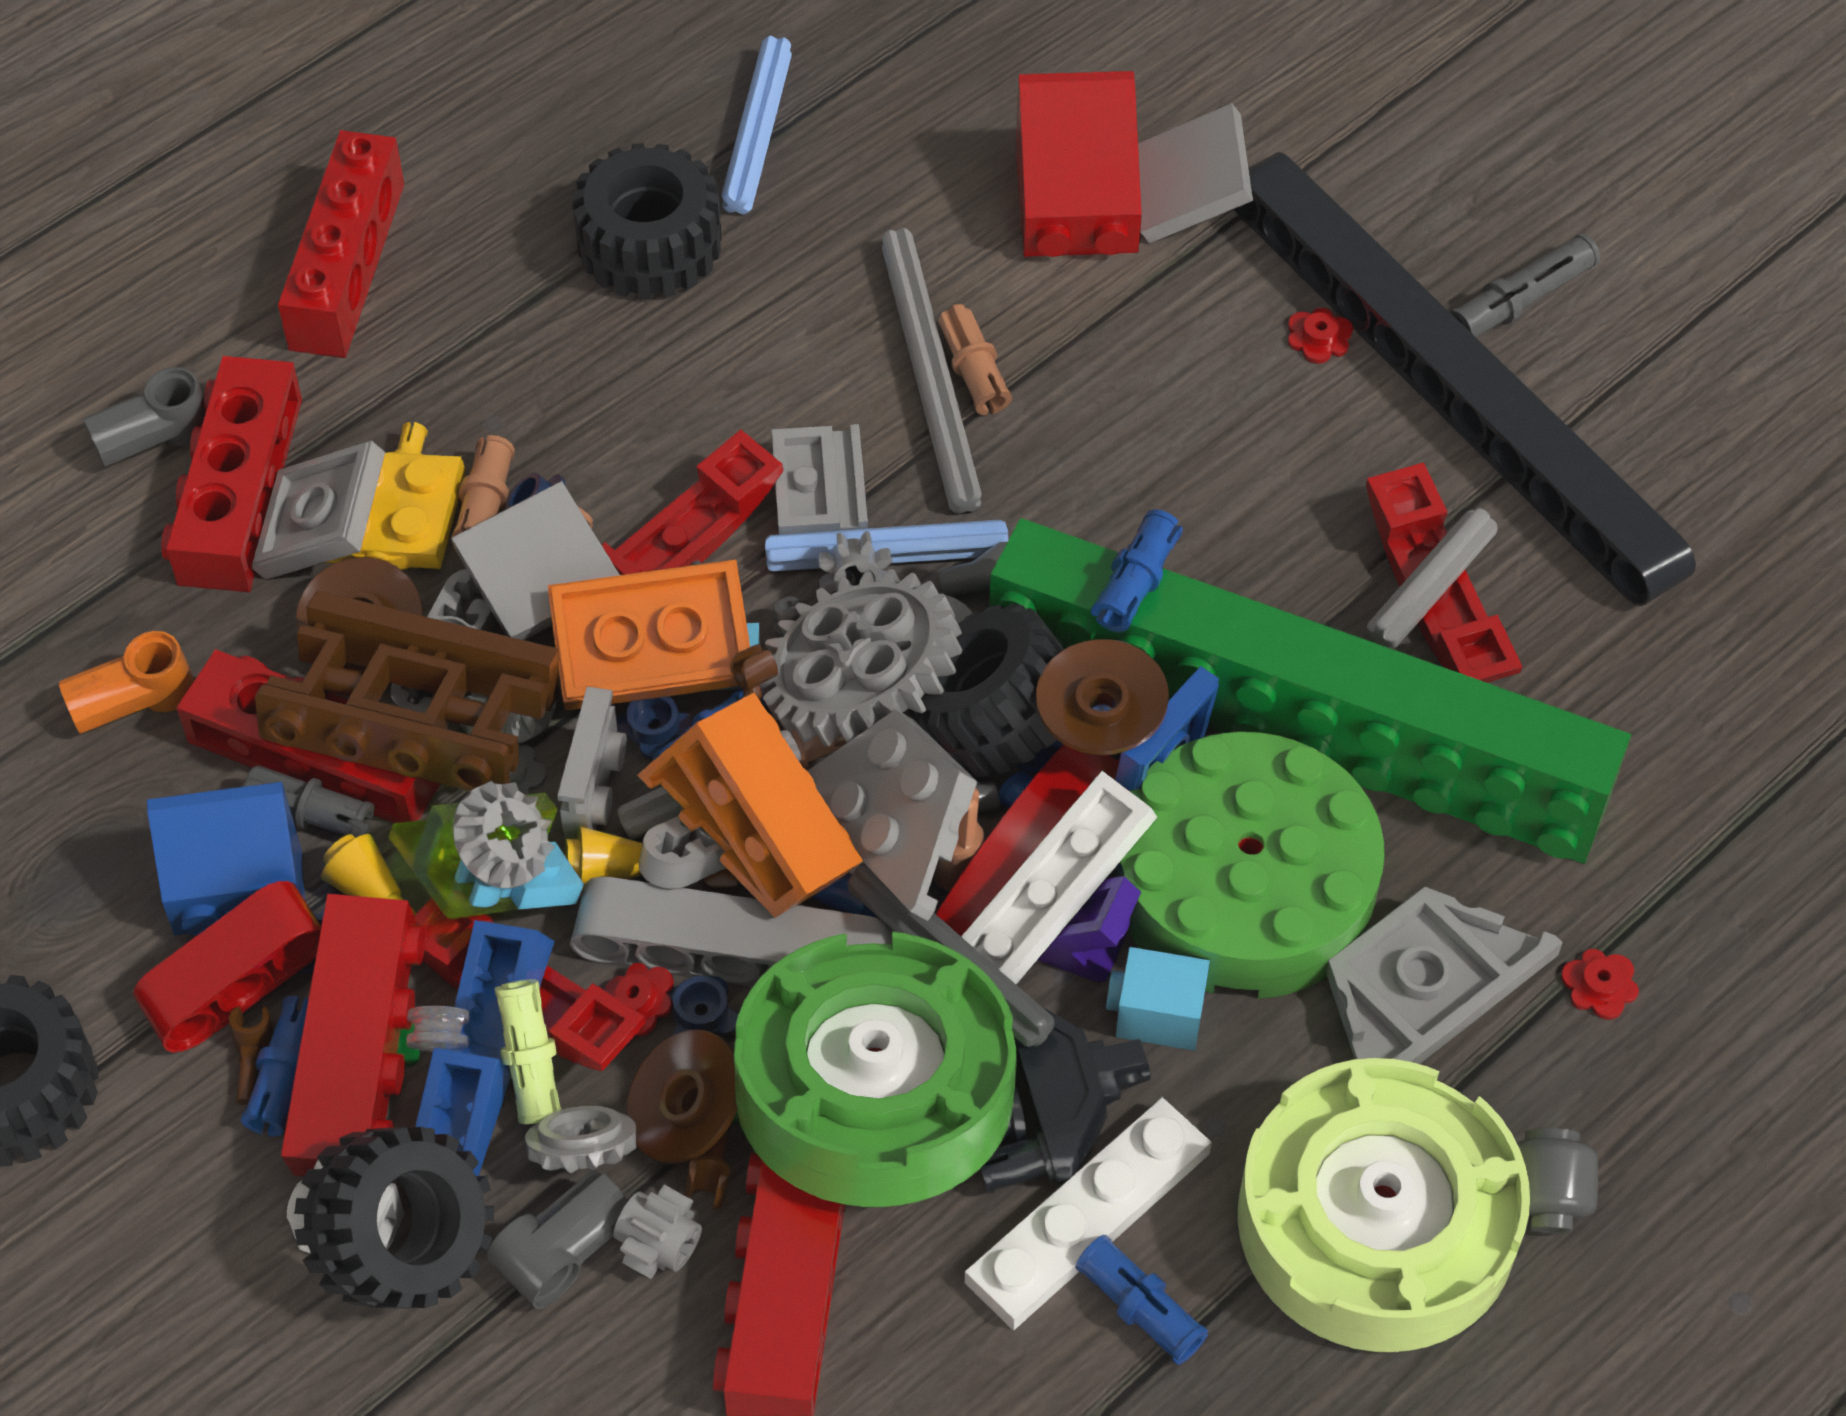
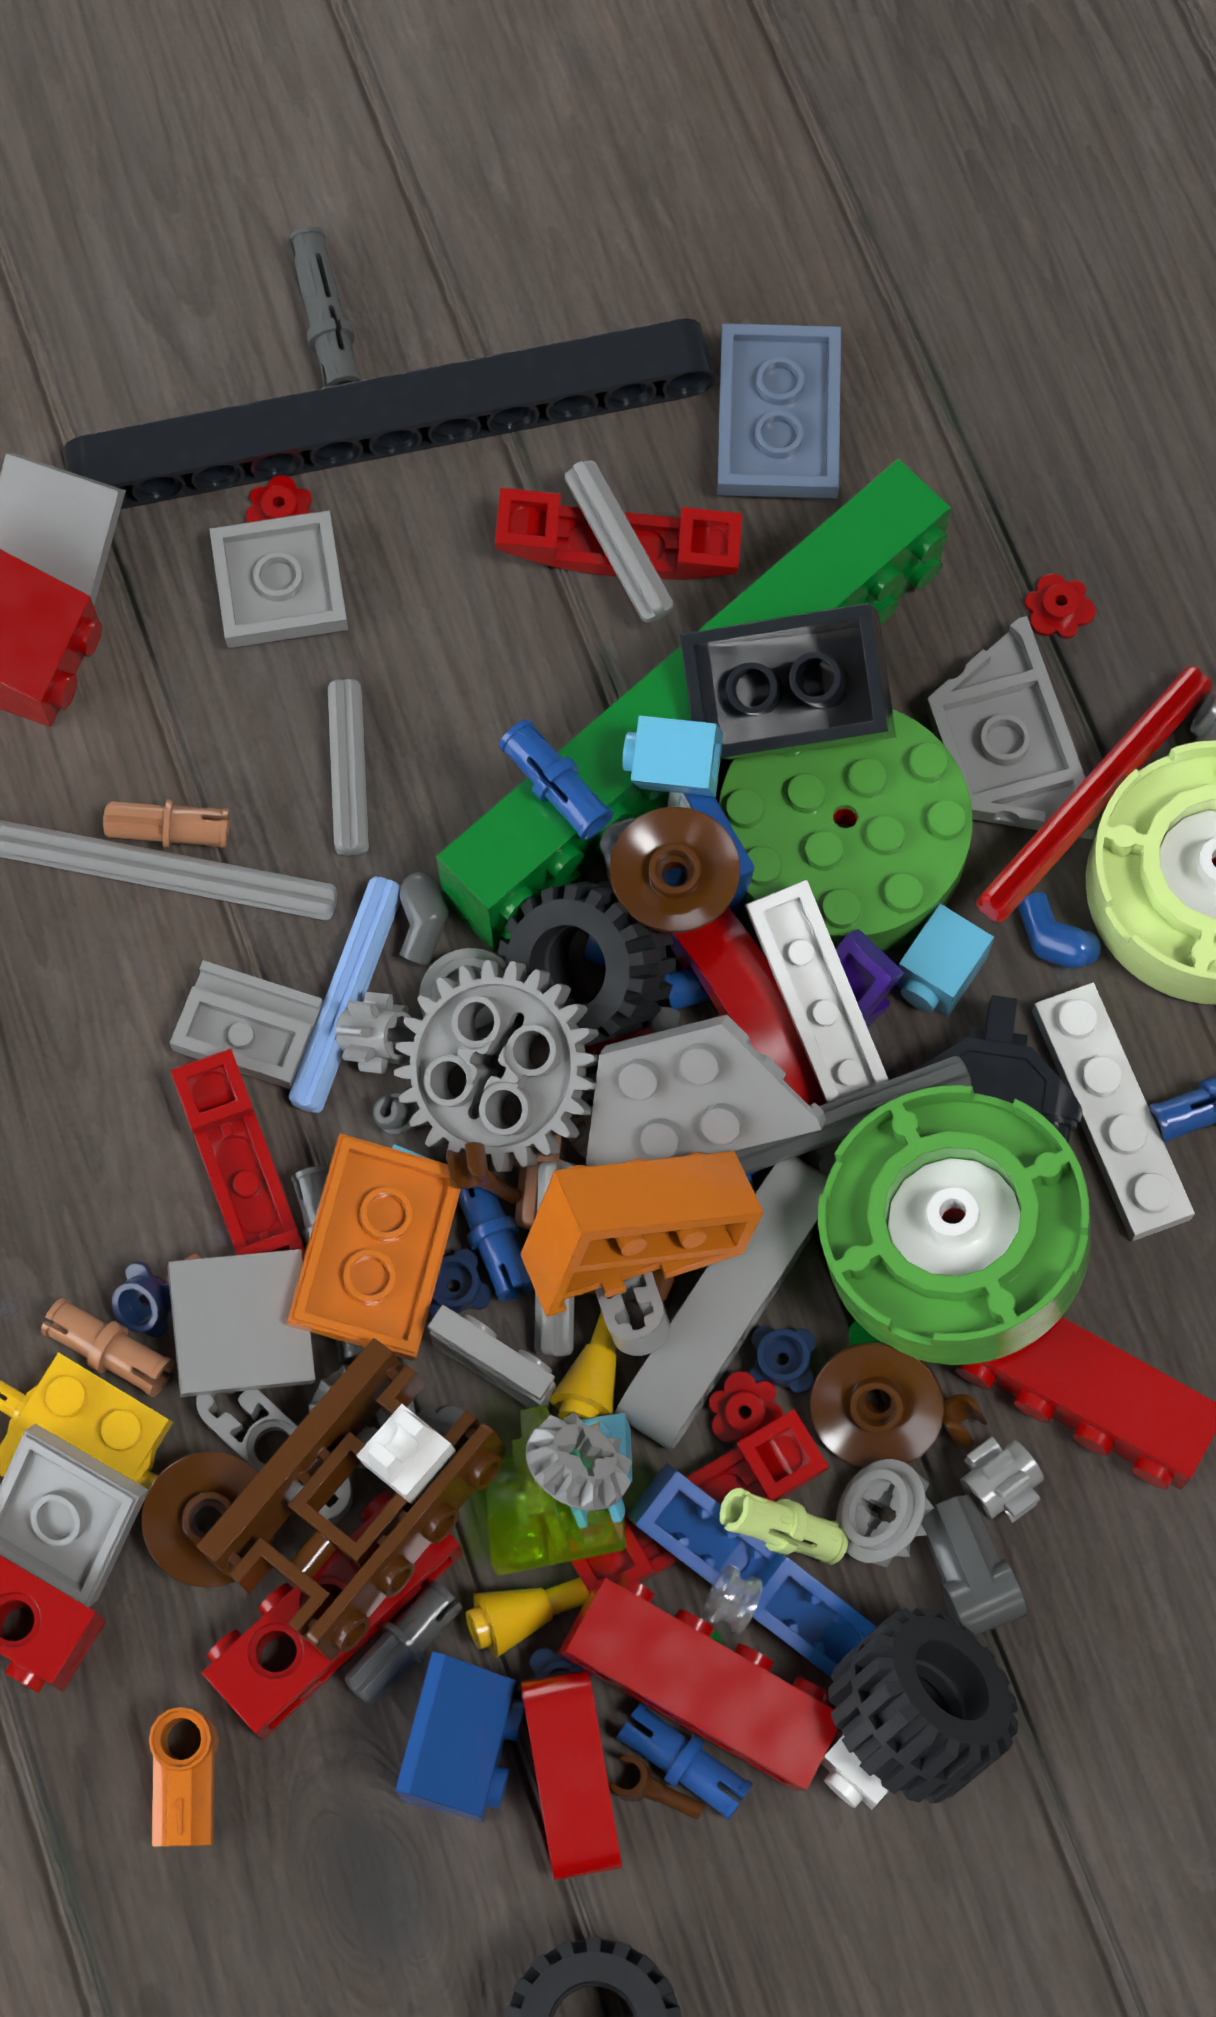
camera: 65 degrees left, 15 degrees up
(455, 697) = (406, 1454): none -> white tile
(1099, 468) = (348, 767): none -> light grey axle
(1206, 645) = (674, 755): none -> medium azure brick
(1238, 1093) = (1055, 940): none -> blue arm
(1246, 350) = (278, 579): none -> light grey plate
(1340, 722) = (791, 682): none -> black slope
(1356, 1040) = (1093, 795): none -> red axle
(1653, 662) = (779, 411): none -> sand blue plate

